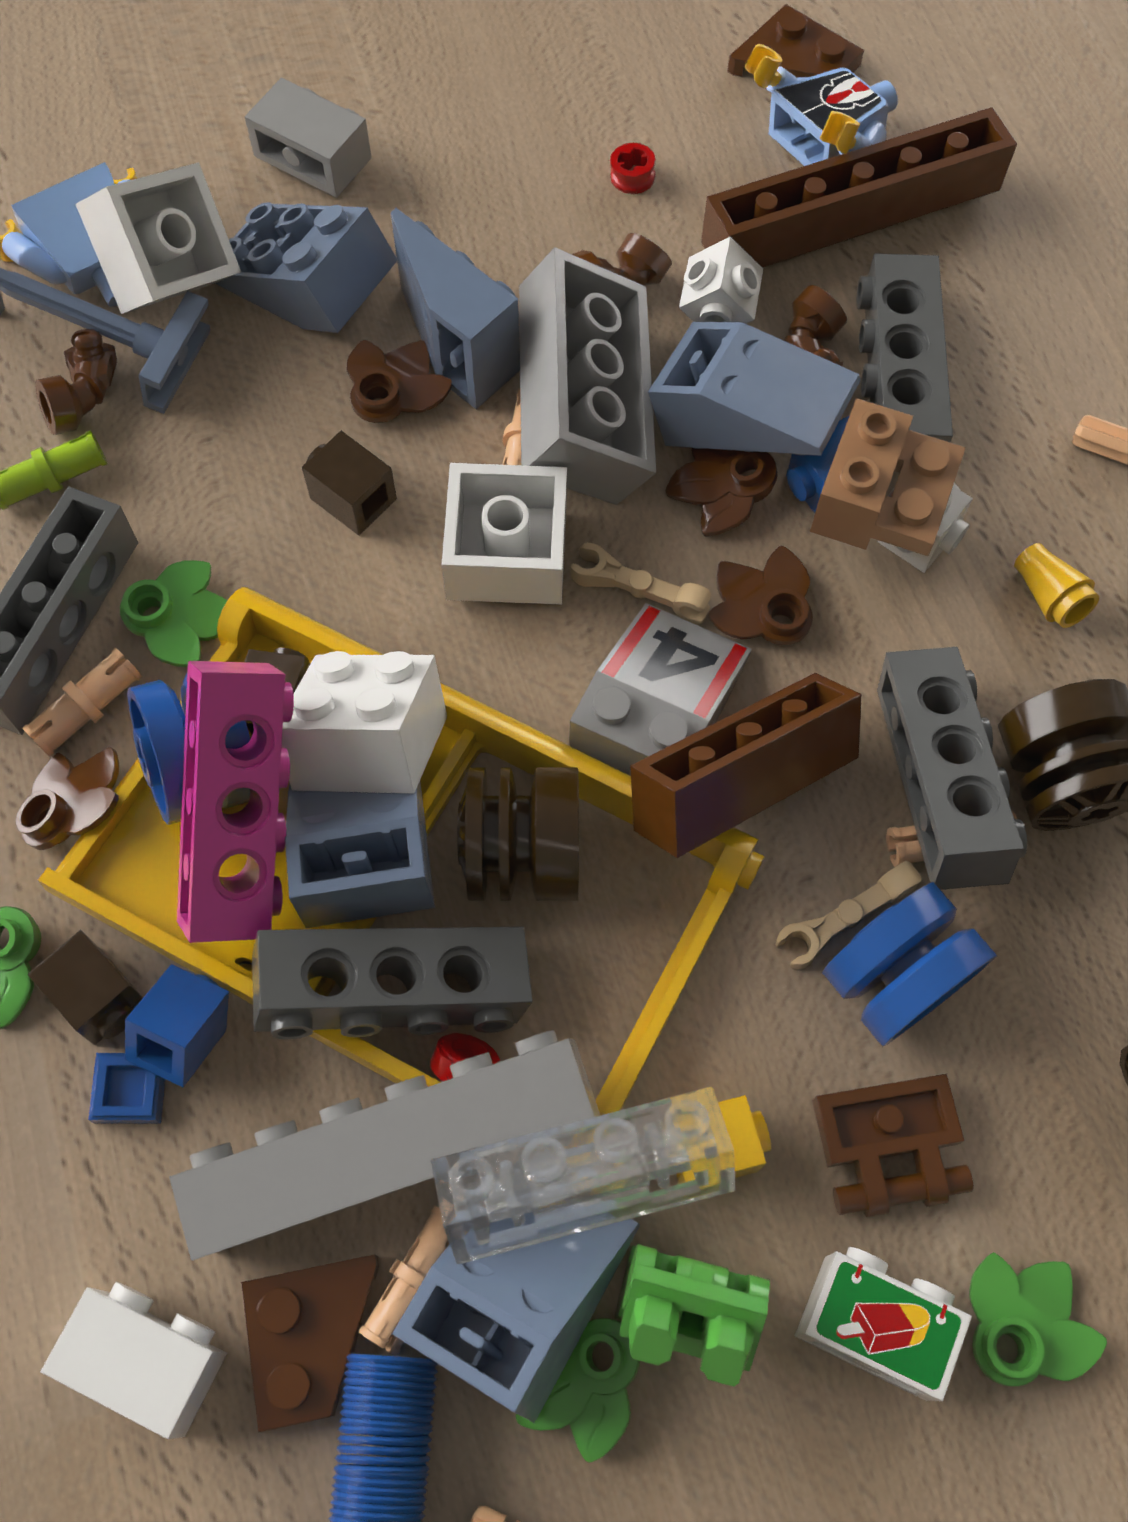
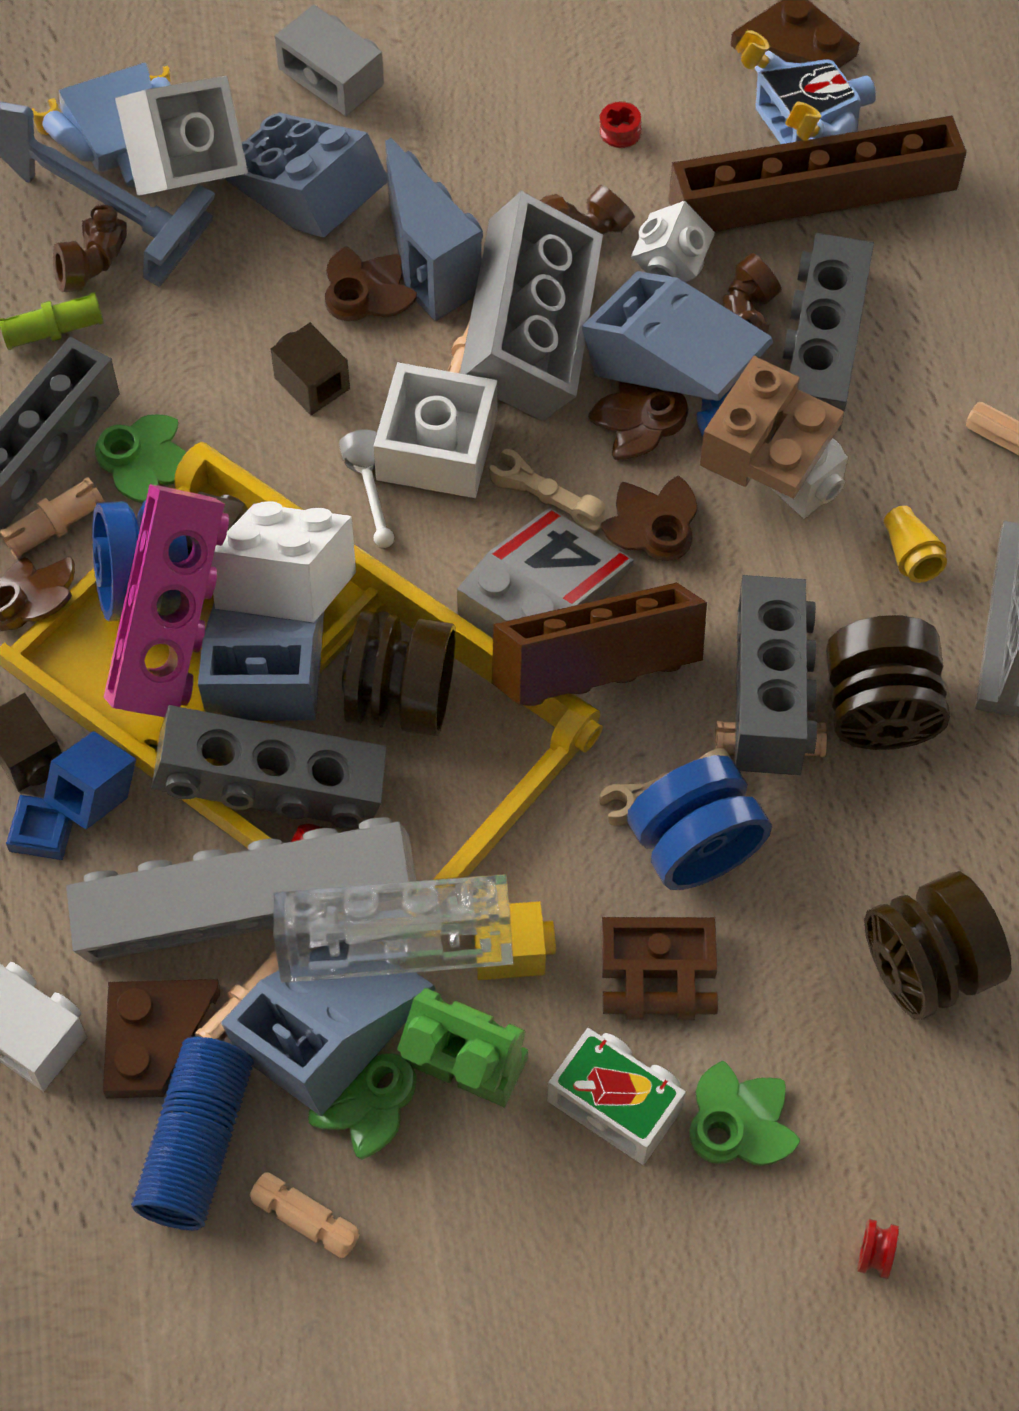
camera: 10 degrees right, 5 degrees down
(423, 574) = (358, 456): none -> hinge

